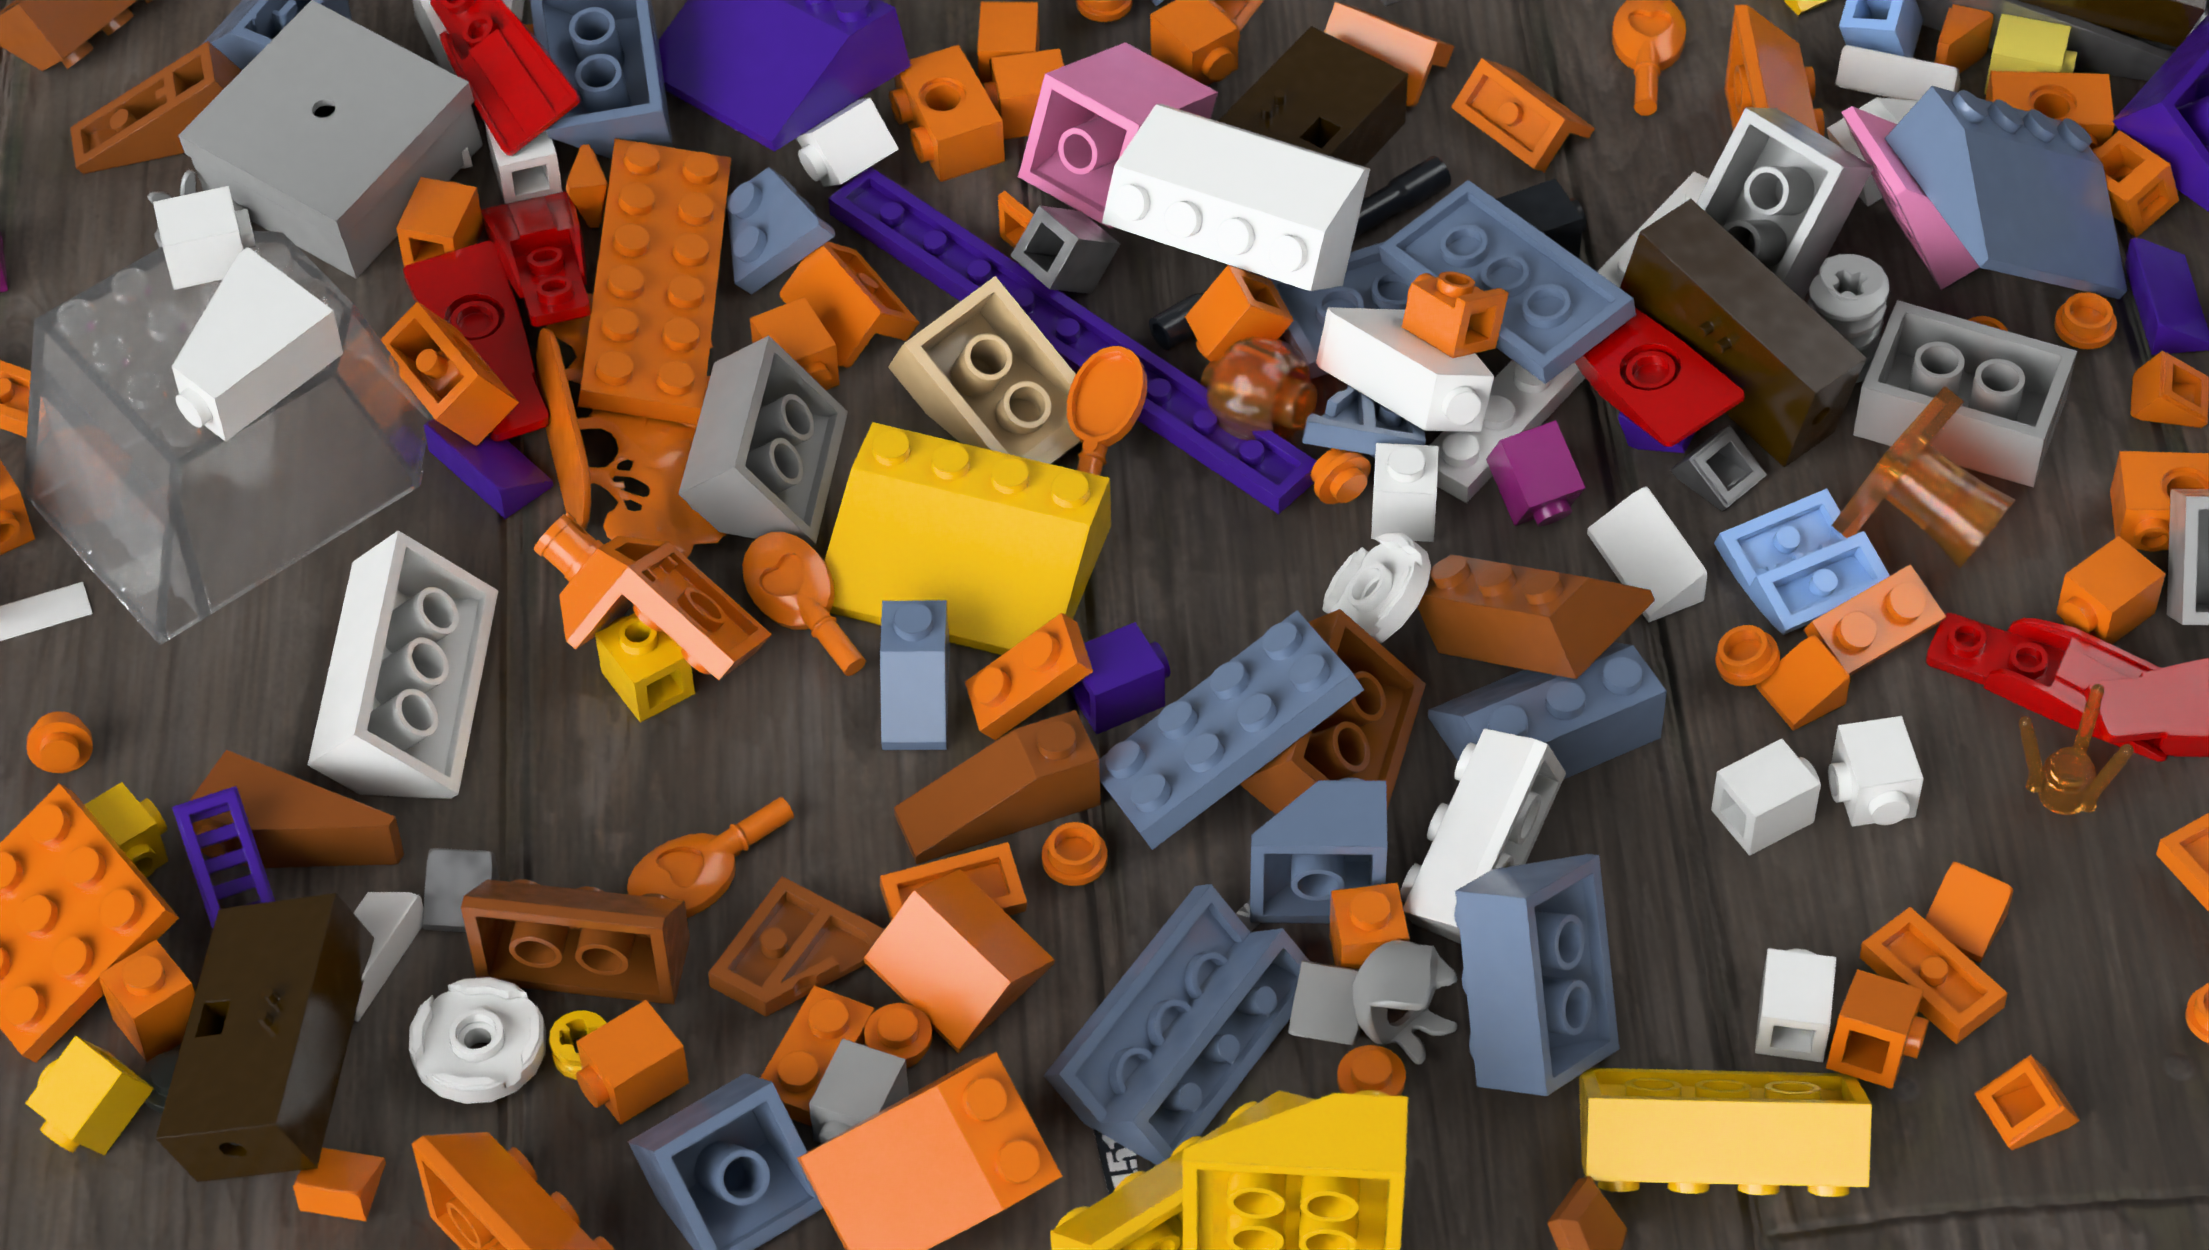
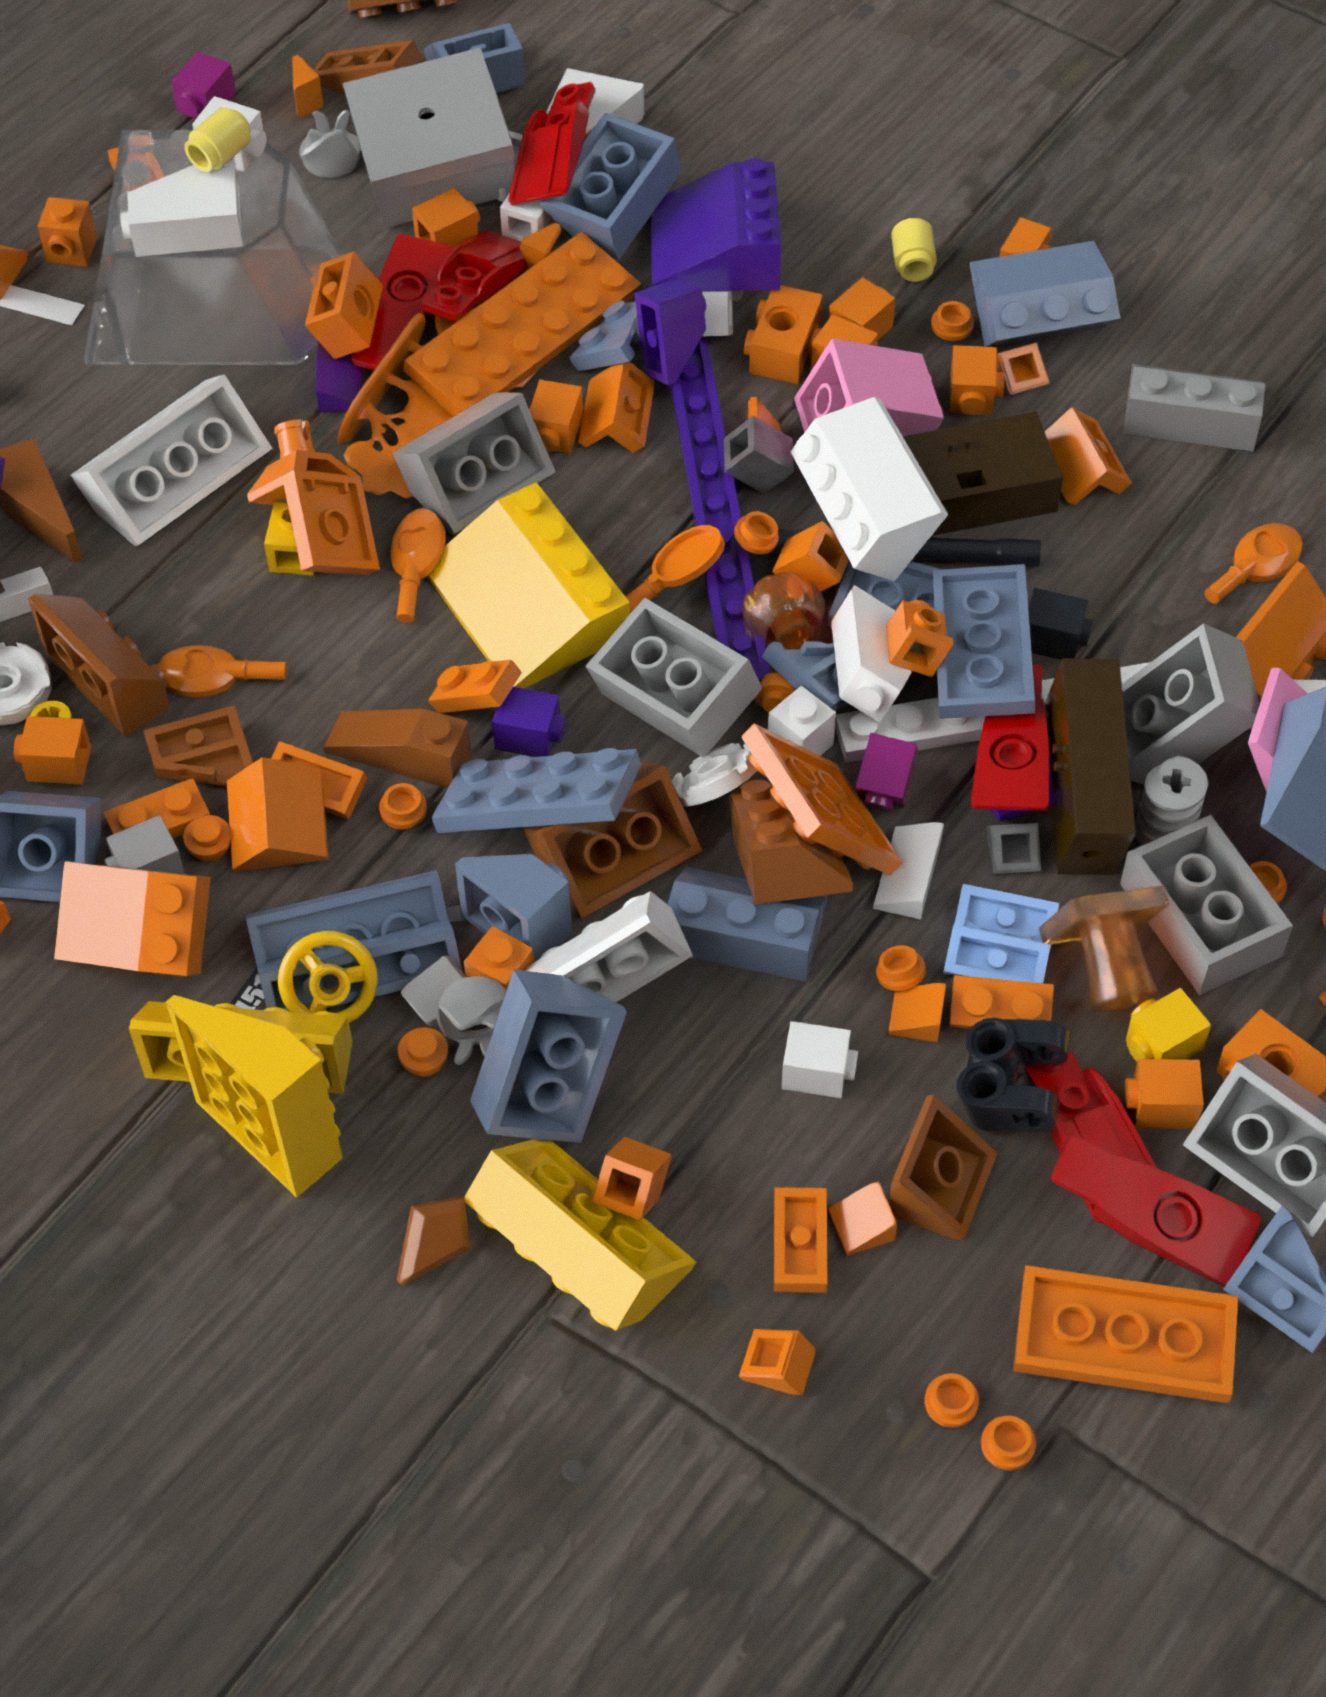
camera: 40 degrees right, 5 degrees up
(96, 177) = (306, 88): none -> orange slope
(234, 239) = (218, 139): none -> light yellow brick
(449, 878) = (84, 584): flat silver slope -> none
(846, 173) = (669, 327): none -> dark purple slope
(914, 675) = (423, 643): slope -> none
(991, 377) = (638, 503): tan slope -> none
(1154, 327) = (757, 532): none -> orange plate
(1219, 1074) = (325, 997): none -> yellow piece
(1236, 522) = (674, 677): none -> light grey brick
(1517, 113) = (1127, 548): orange panel -> none
(1524, 540) = (820, 800): none -> orange plate
(1727, 1033) = (632, 1178): none -> orange brick
(1795, 1004) = (698, 1193): white brick -> none
(1875, 772) = (896, 1093): white brick -> none
(1877, 1029) = (723, 1243): orange brick -> none
(1987, 814) = (941, 1172): none -> dark orange slope
(1996, 702) = (988, 1073): none -> black piece
(2047, 535) = (1167, 1028): none -> yellow brick
(2069, 777) = (1015, 1182): clear orange plant -> none

